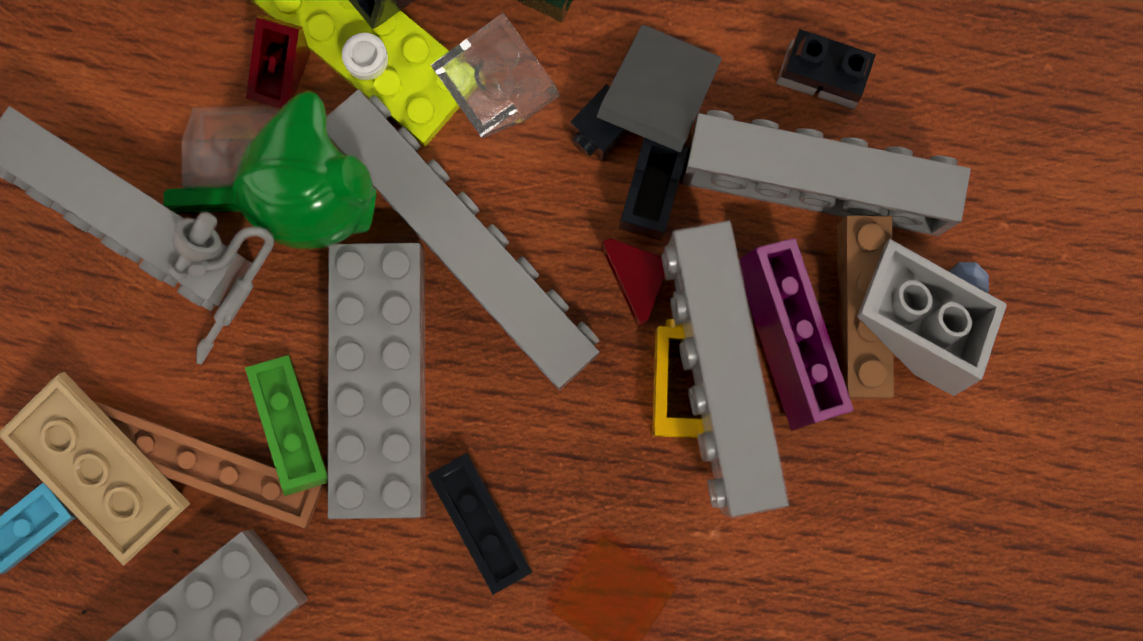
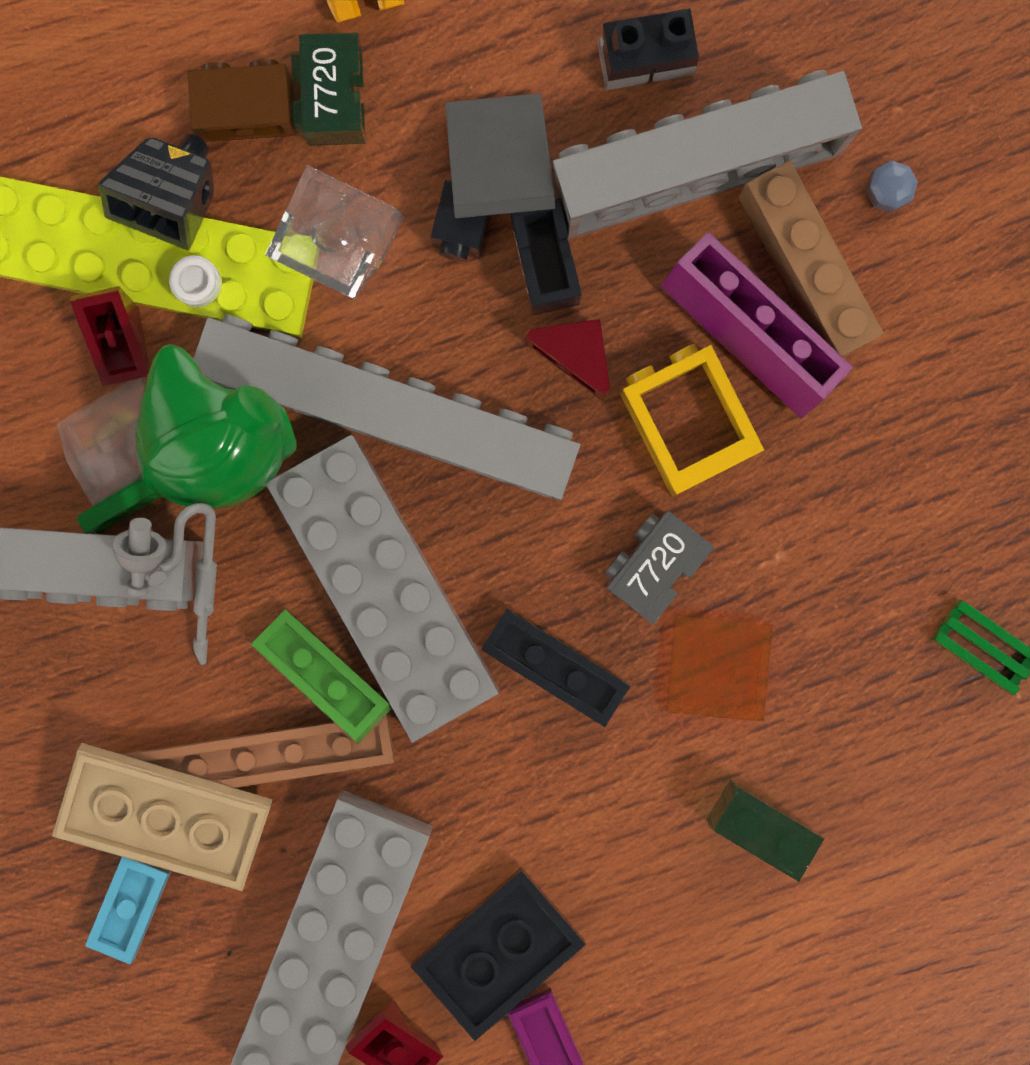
camera: 25 degrees left, 5 degrees up
(617, 479) = (662, 555): none -> dark grey brick
(725, 370) = (713, 397): light grey brick -> none
(931, 319) = (881, 238): light grey slope -> none

